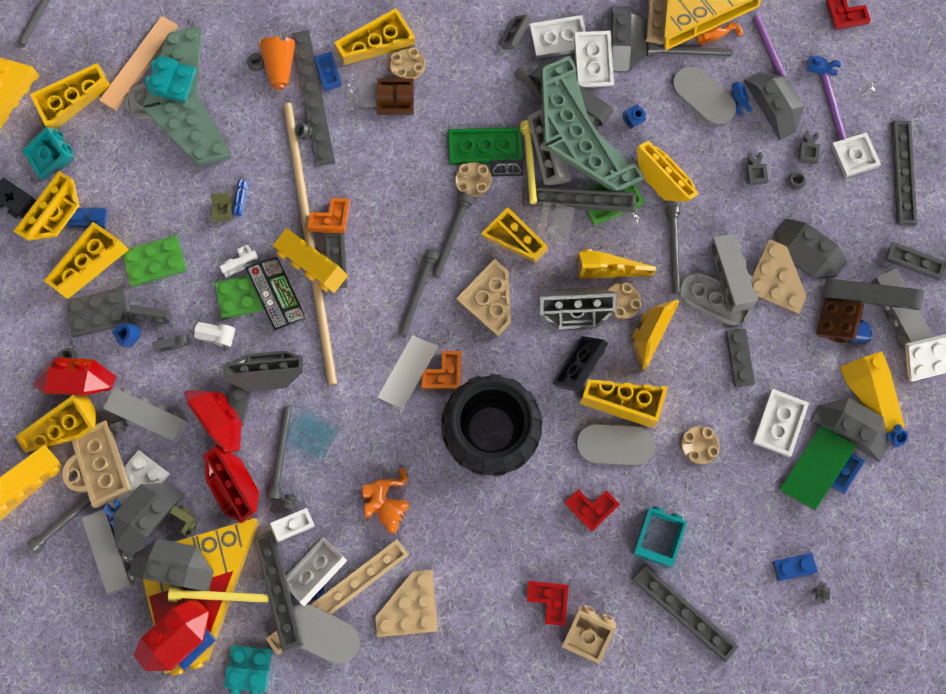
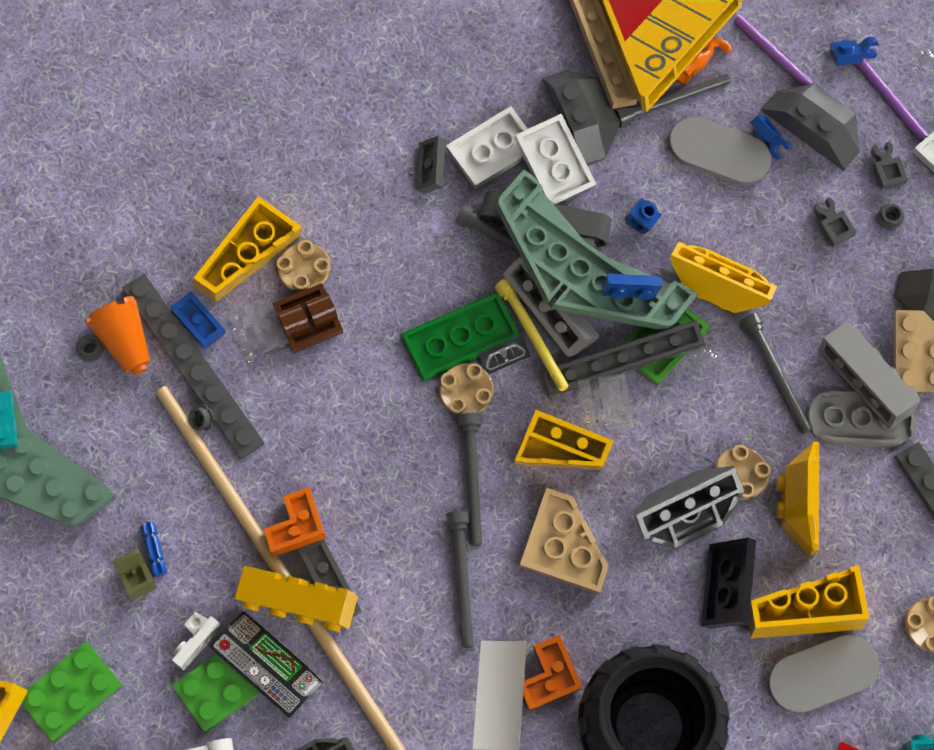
camera: 25 degrees left, 5 degrees down
(602, 154) = (636, 286): none -> blue plate
(602, 265) = (692, 435): yellow wedge -> none

